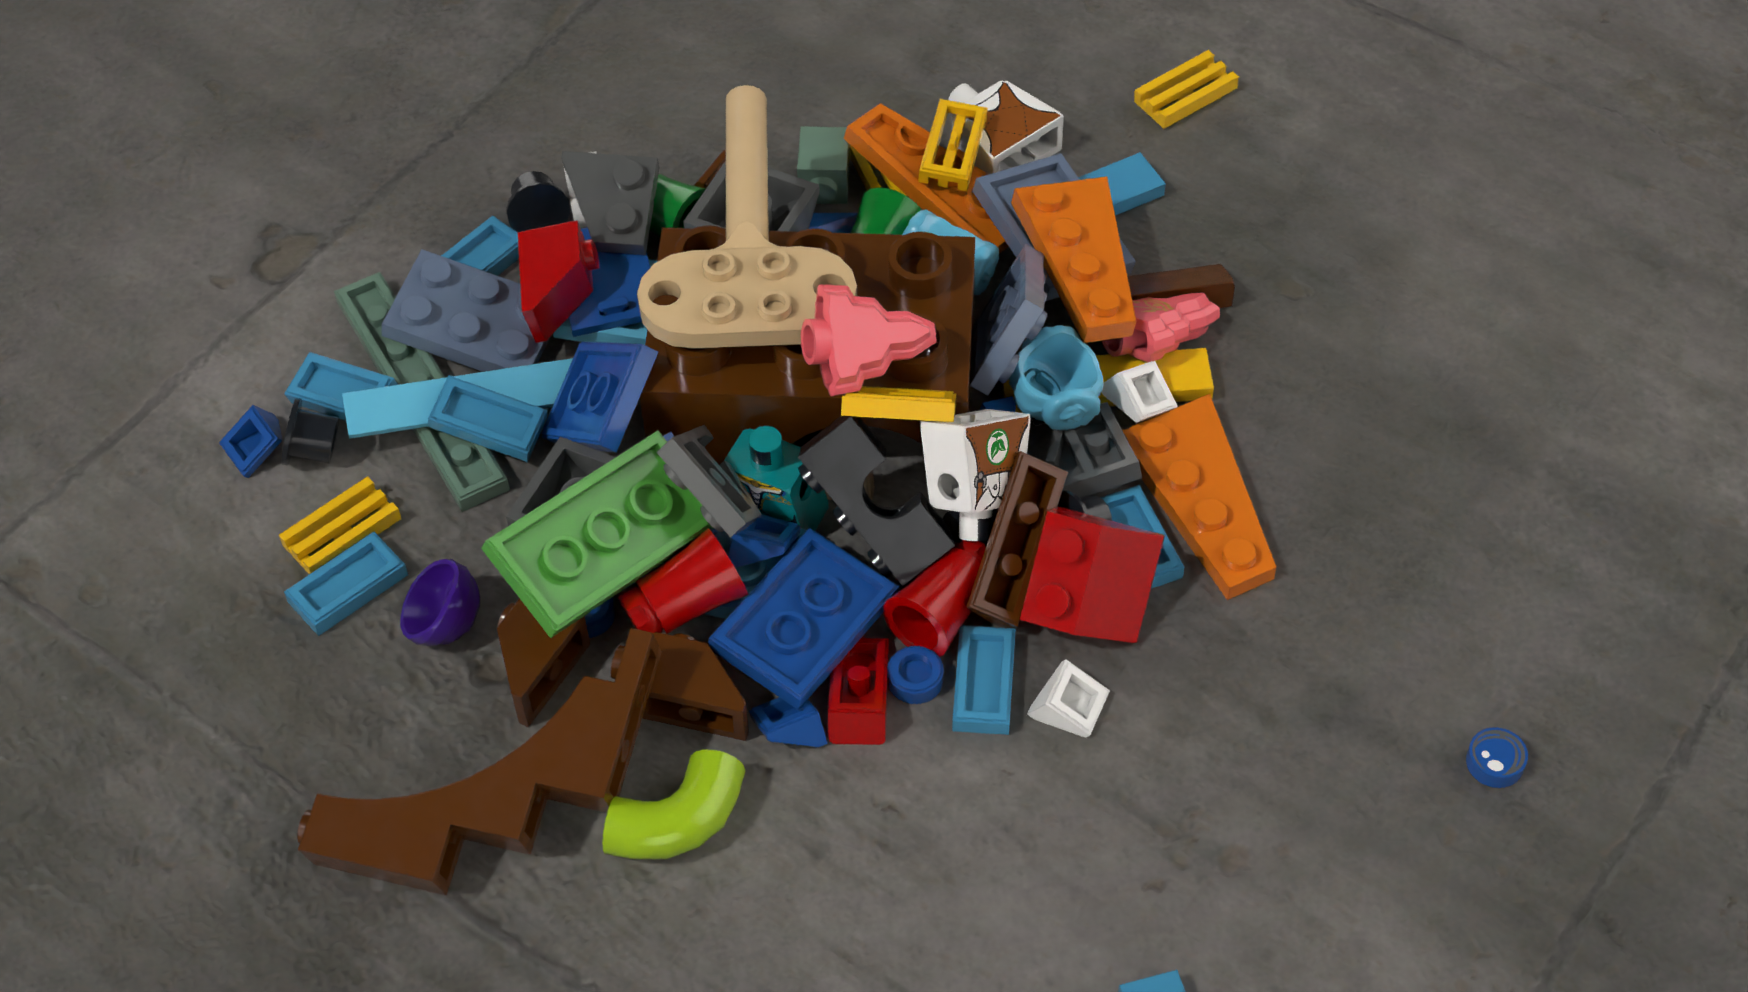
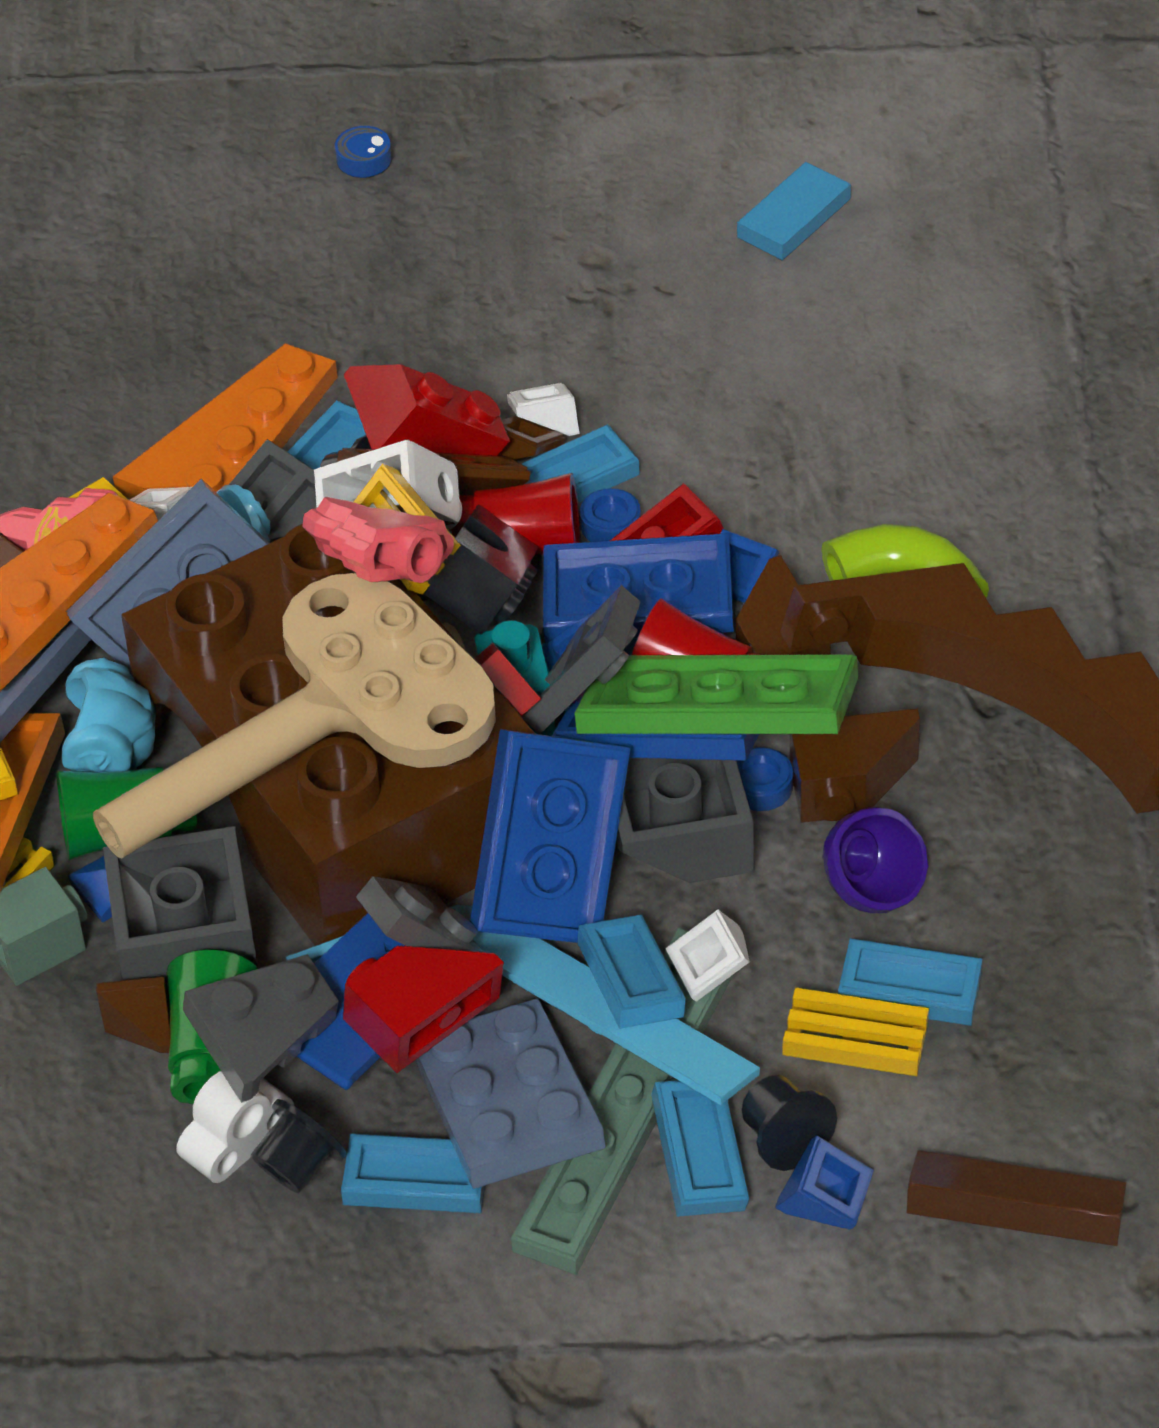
camera: 125 degrees left, 5 degrees down
(142, 526) = (1016, 1198): none -> reddish brown slope
(458, 469) = (709, 954): none -> white slope
(603, 298) = (416, 916): none -> dark grey wing
(727, 415) = (507, 679): none -> red tile
(1038, 660) = (529, 438): none -> reddish brown slope

